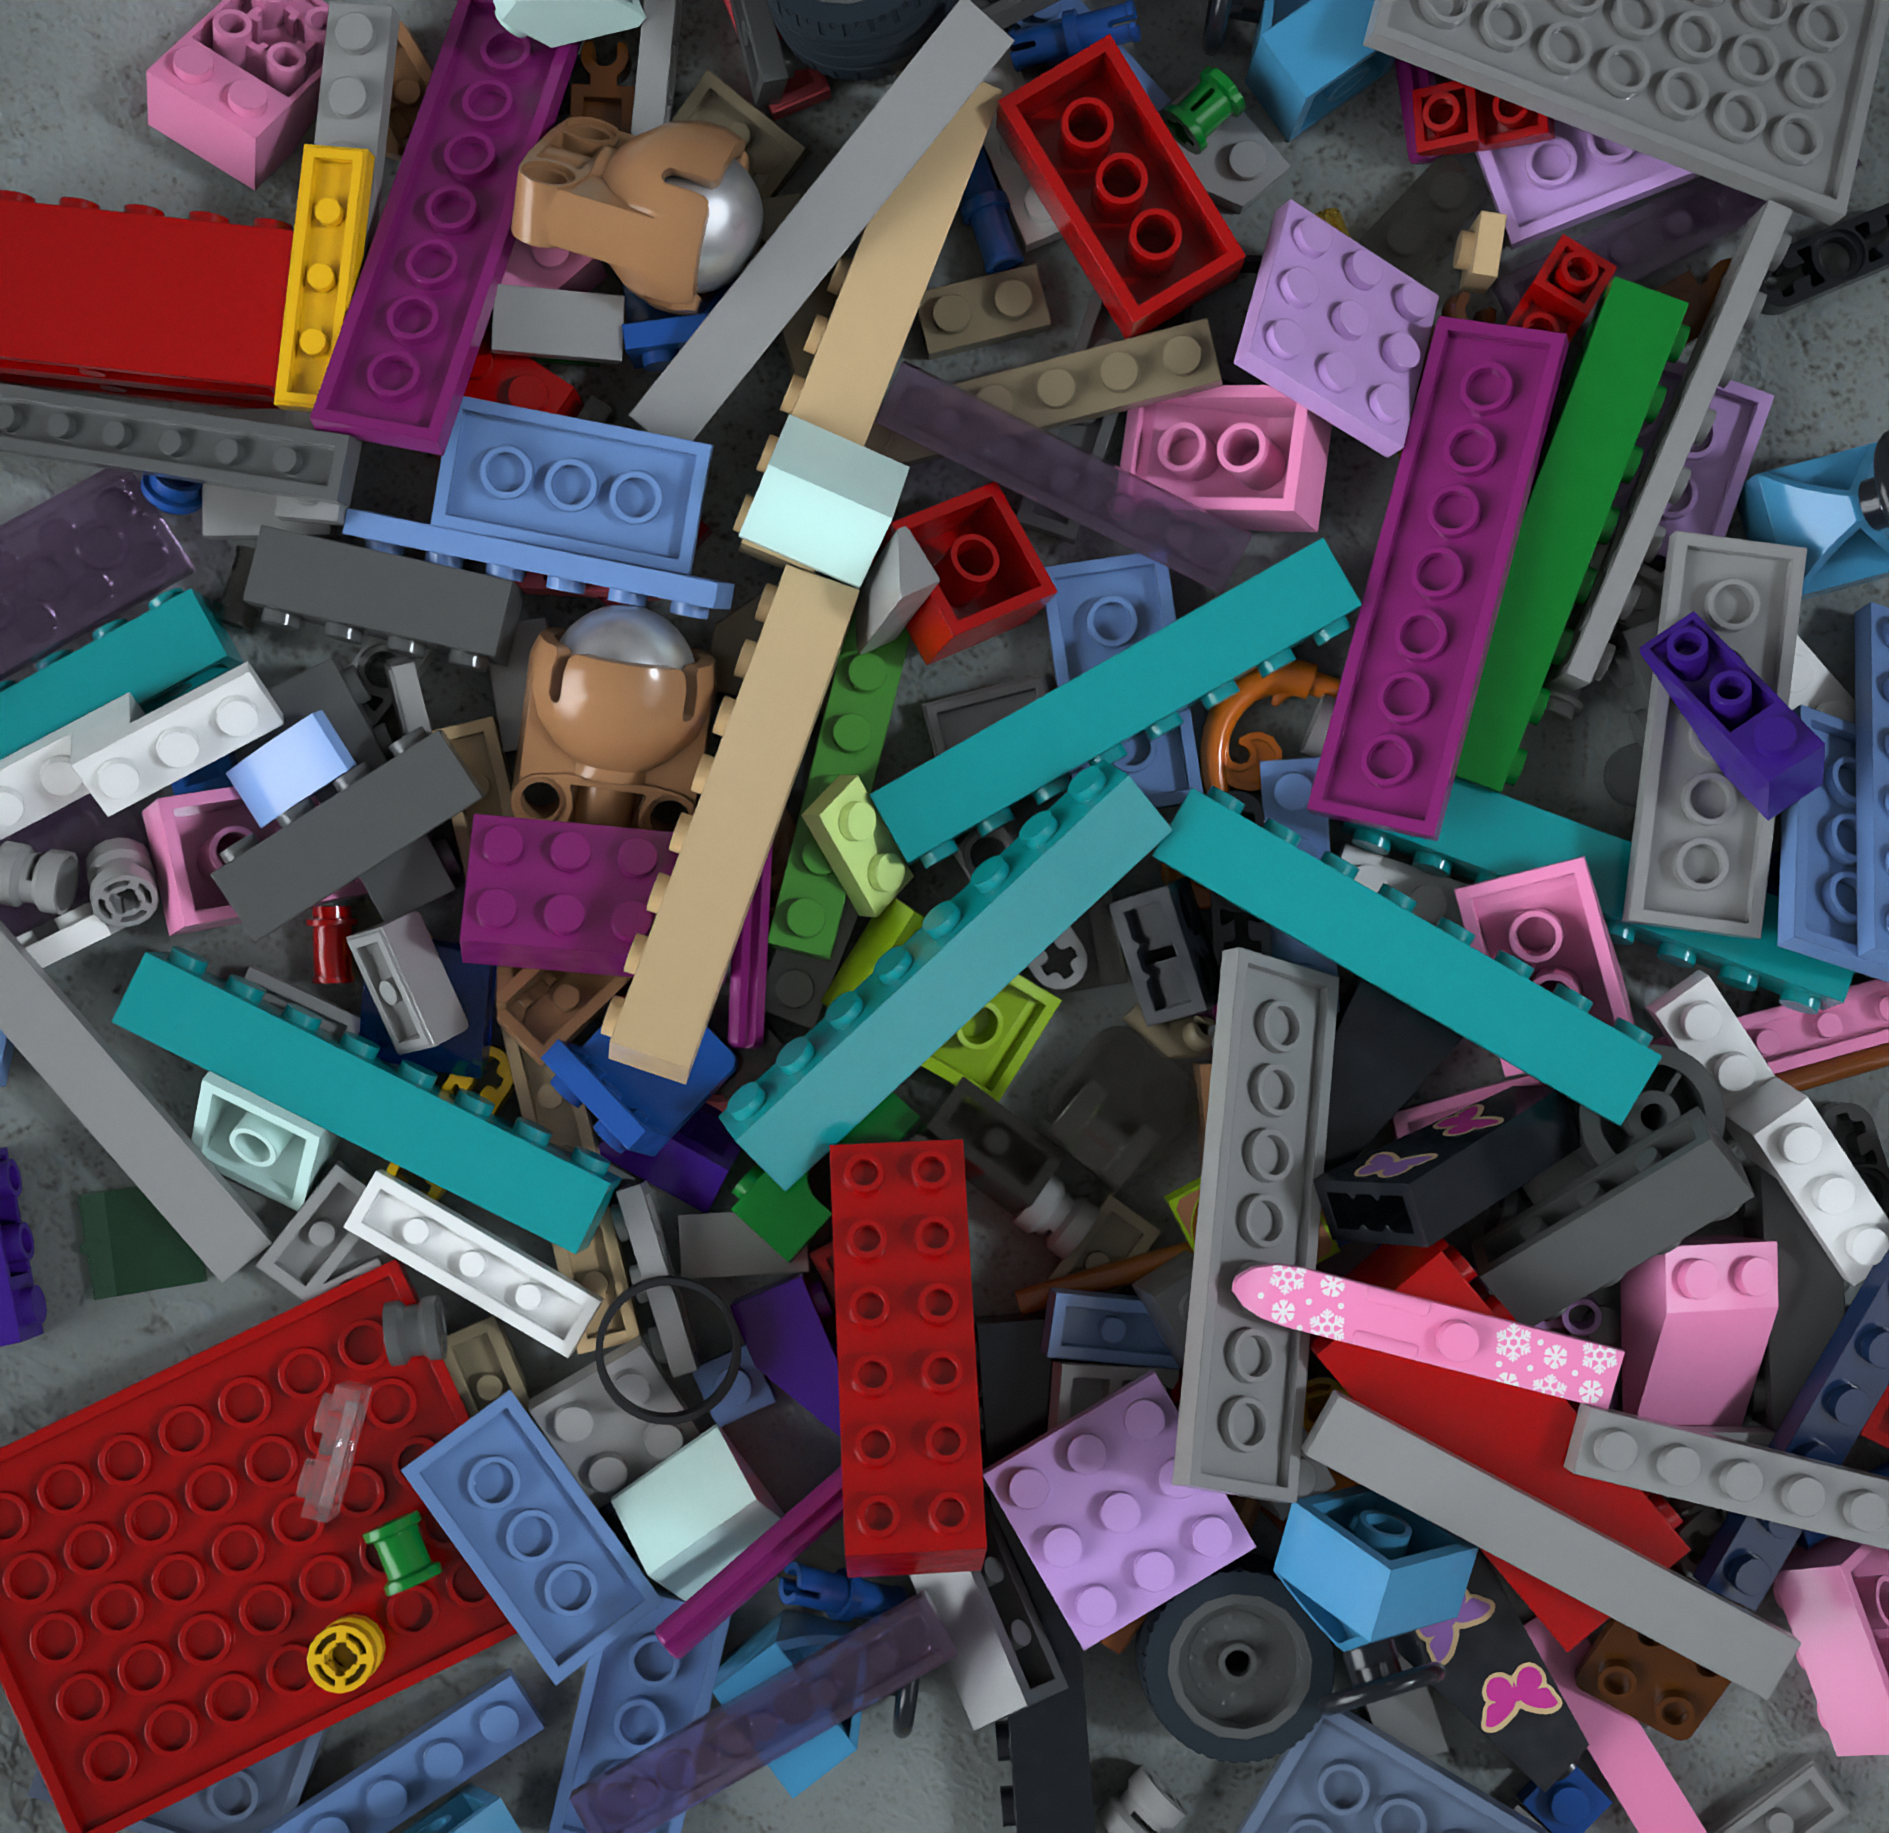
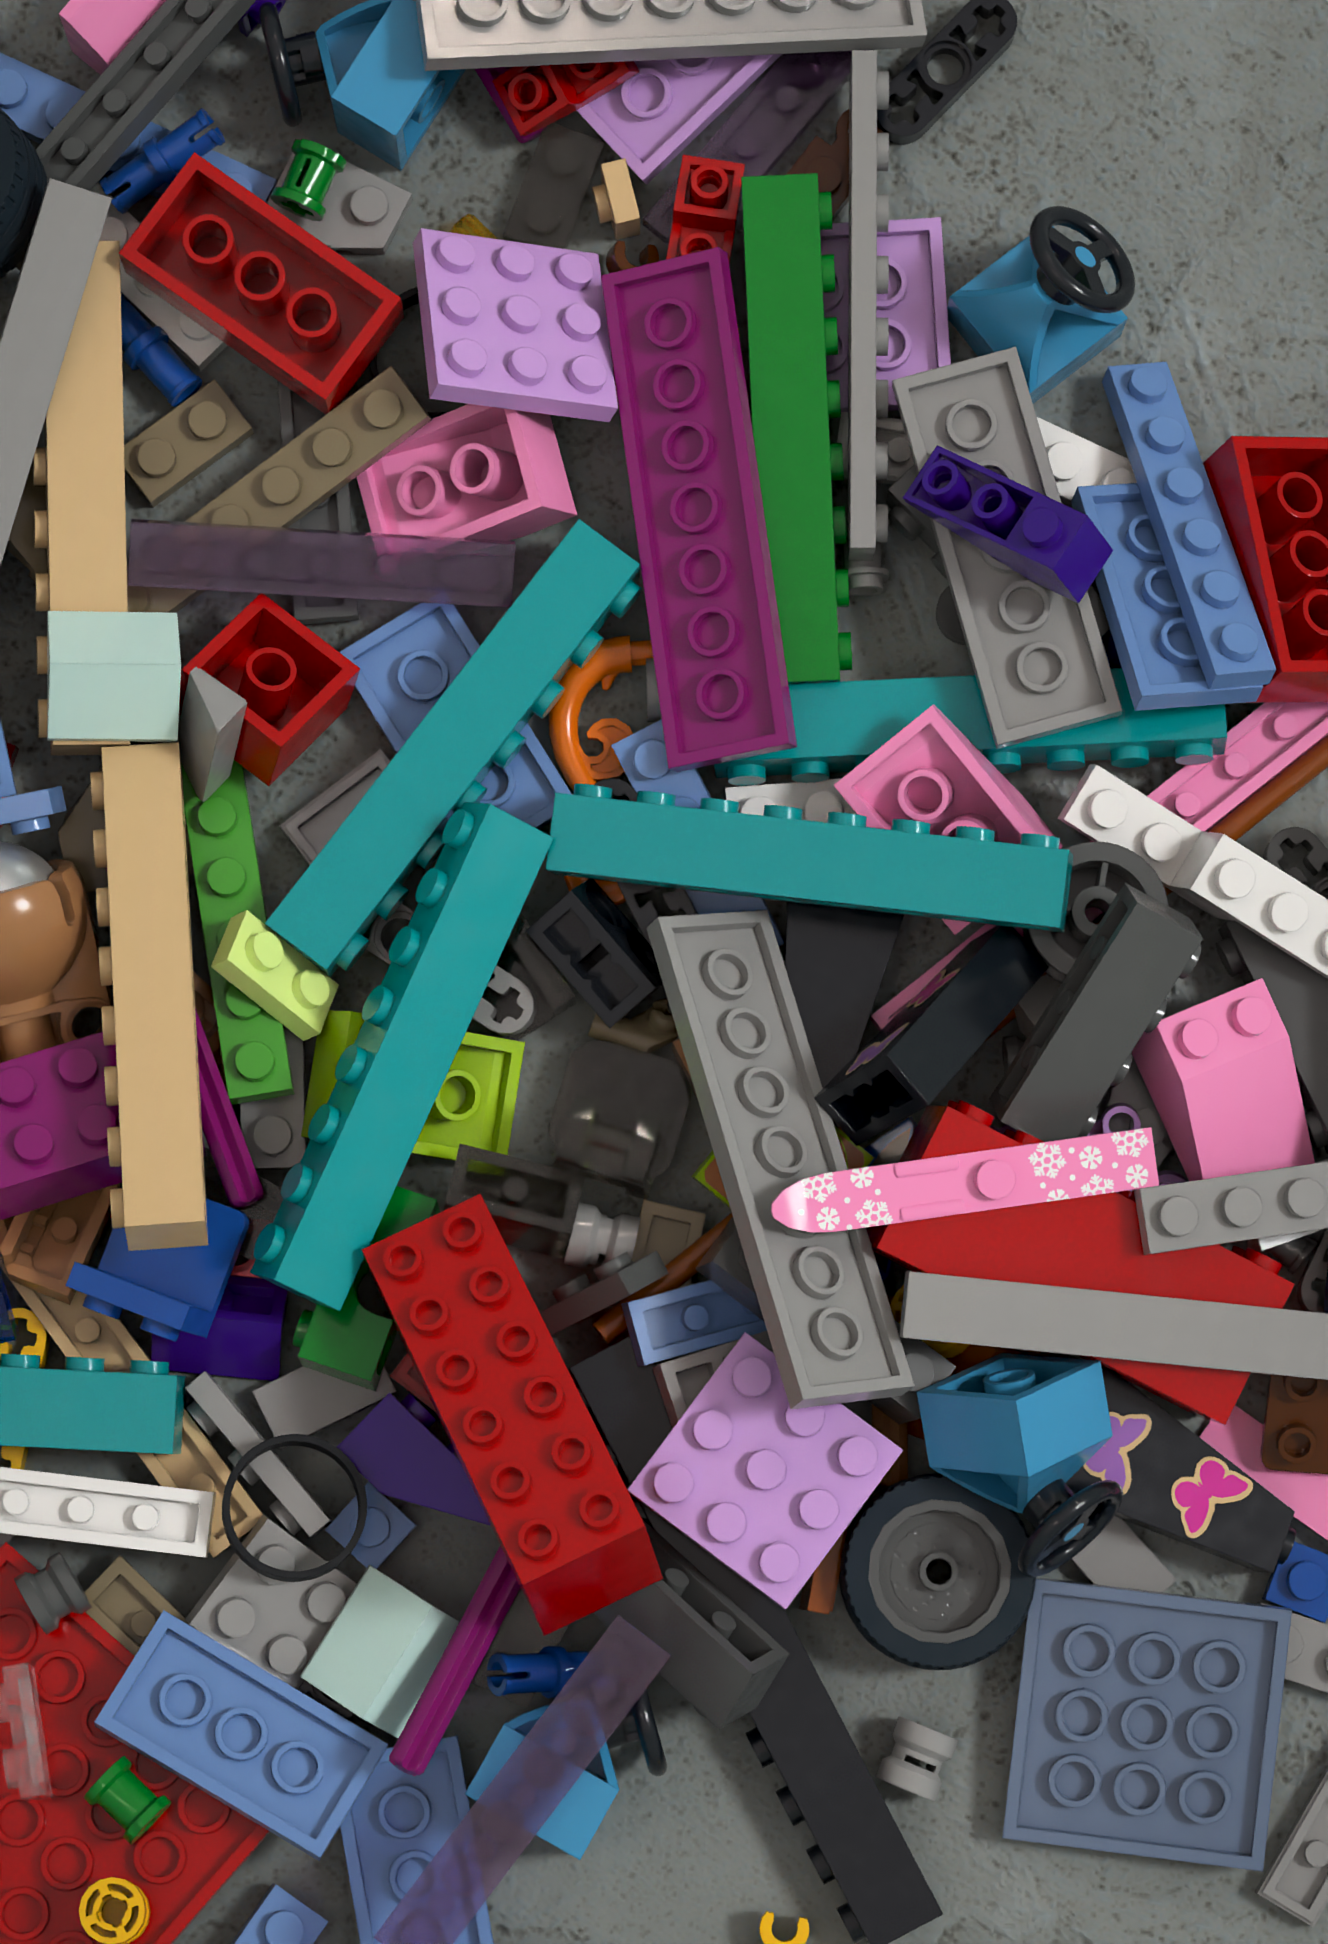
camera: 20 degrees left, 5 degrees down
(1047, 1269) = (616, 1281): none -> dark grey plate

